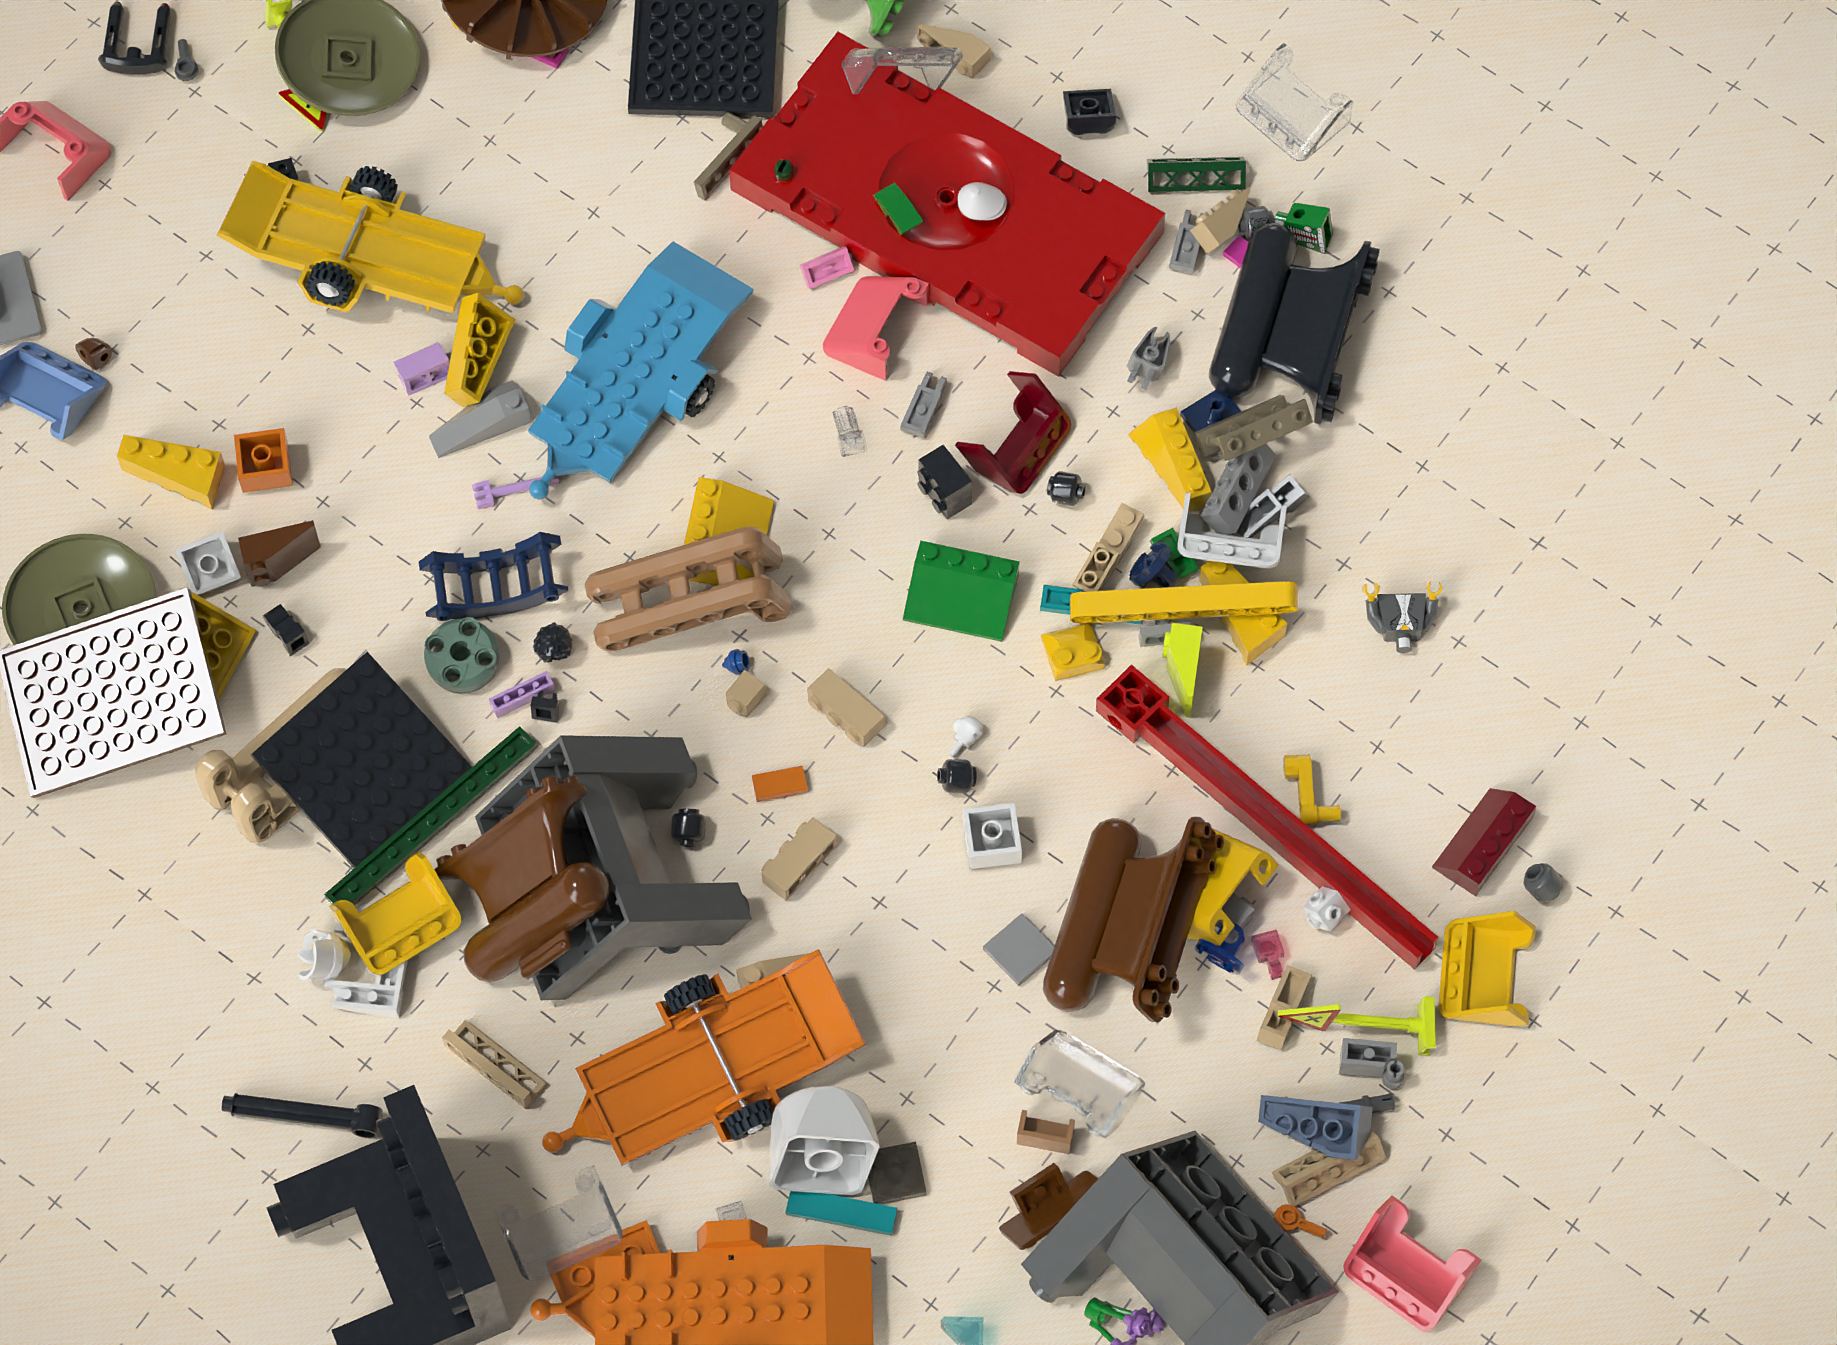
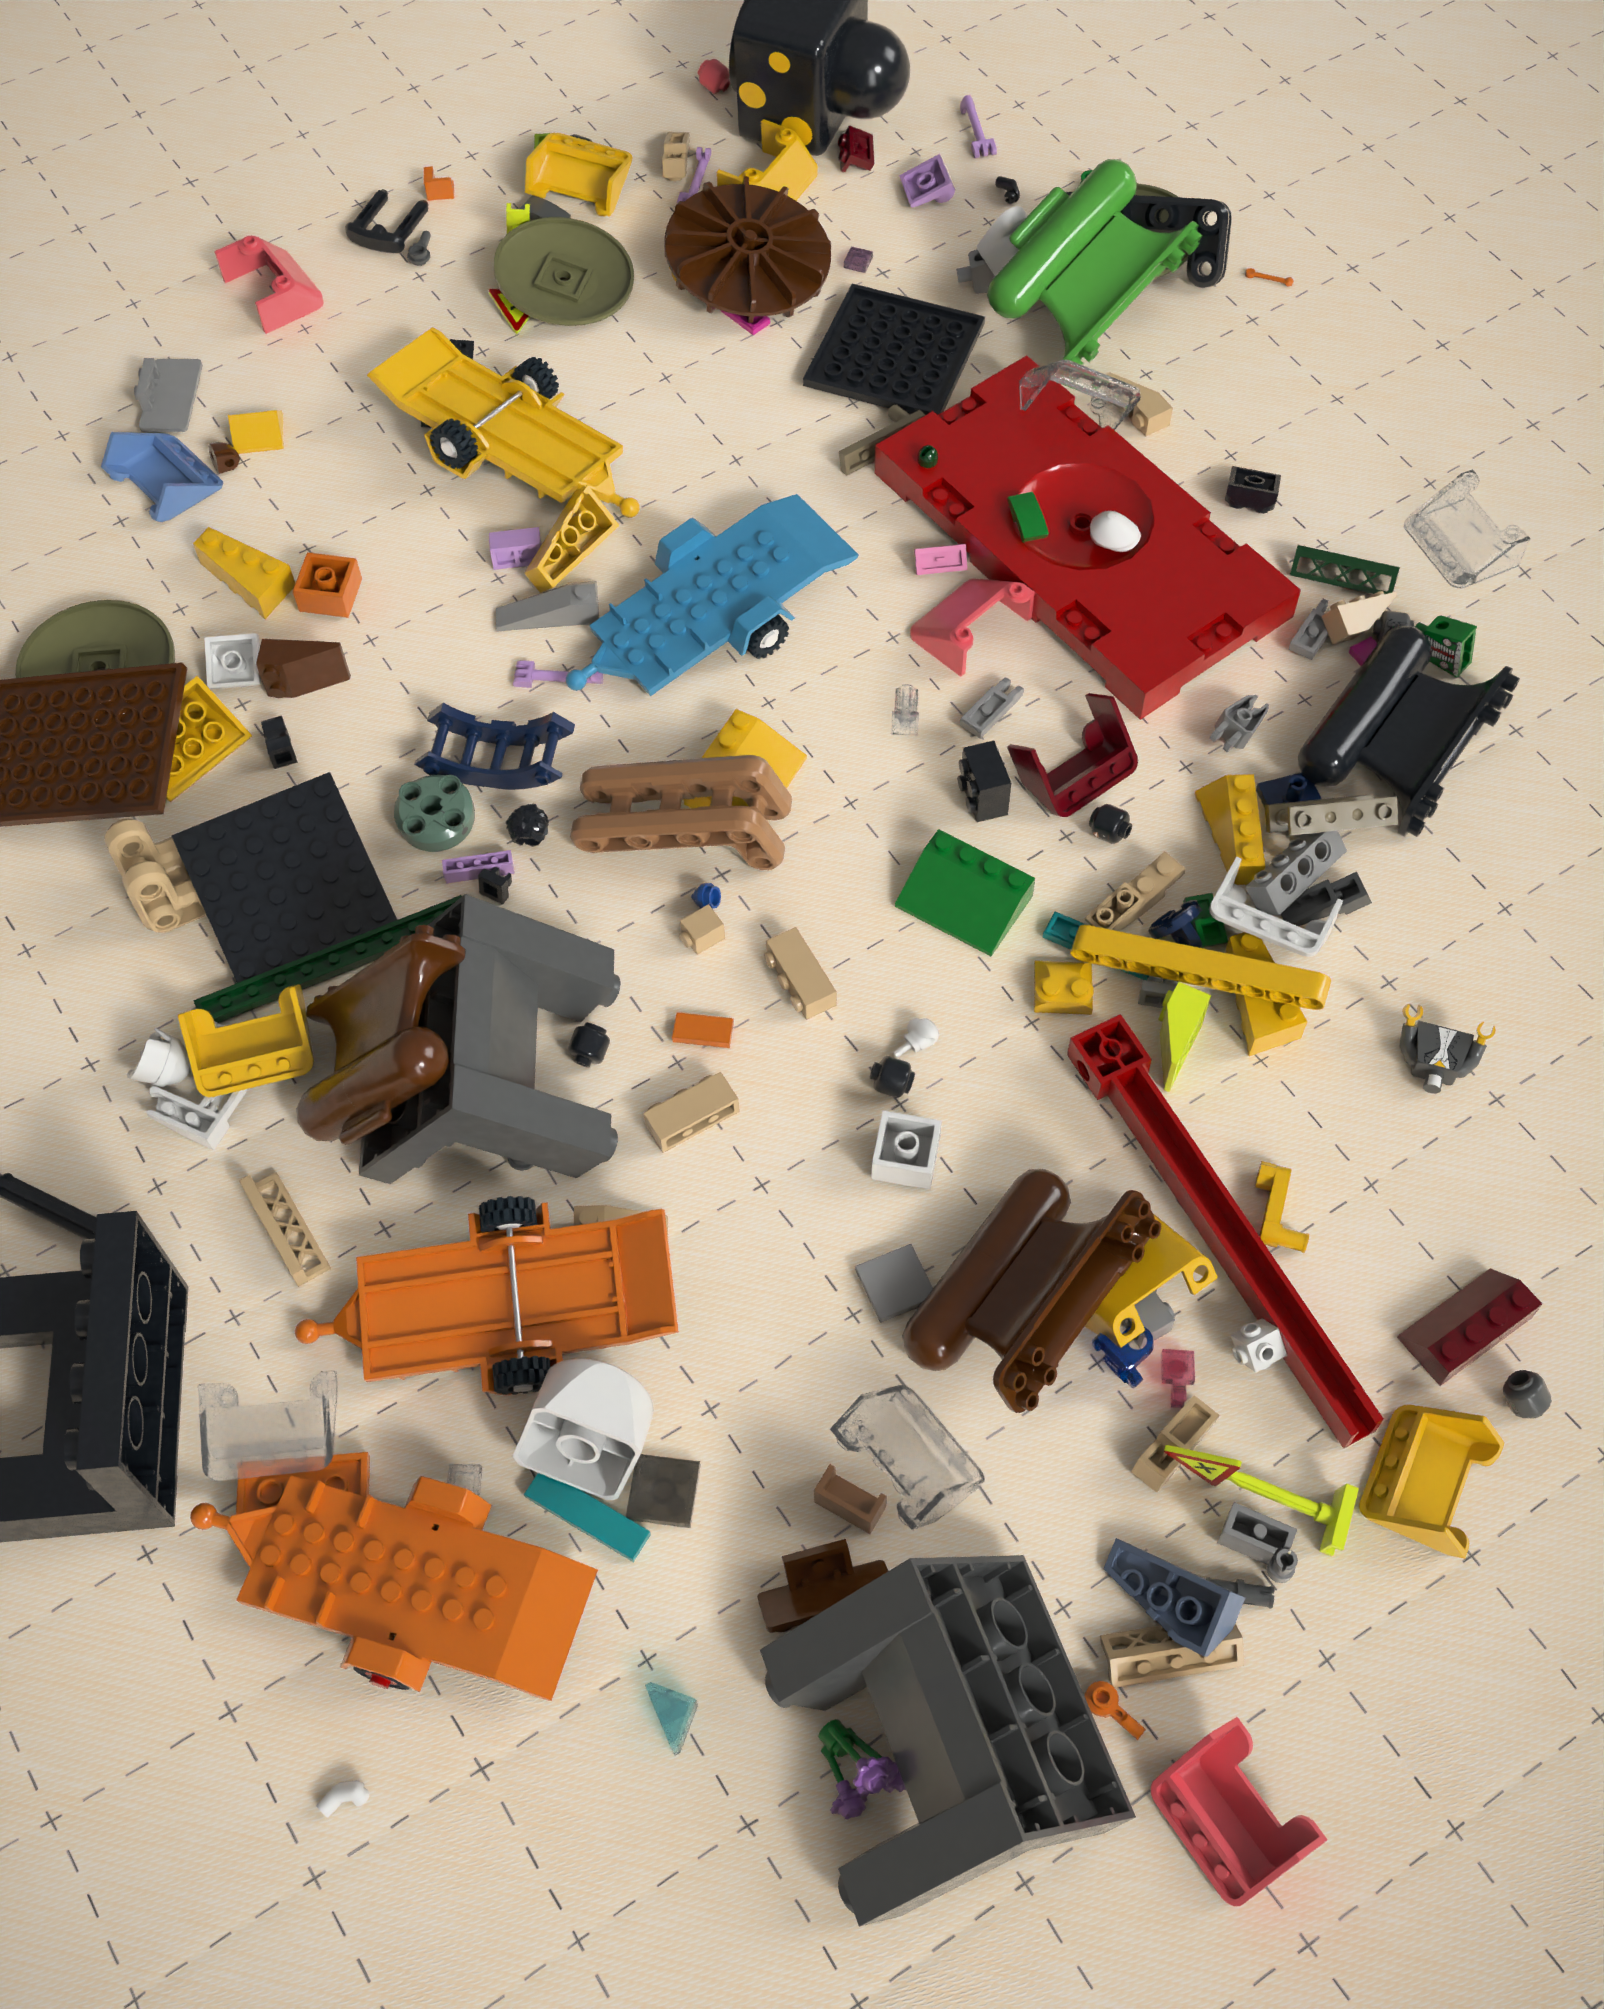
camera: 20 degrees right, 5 degrees down
(113, 313) = (257, 431): none -> yellow slope

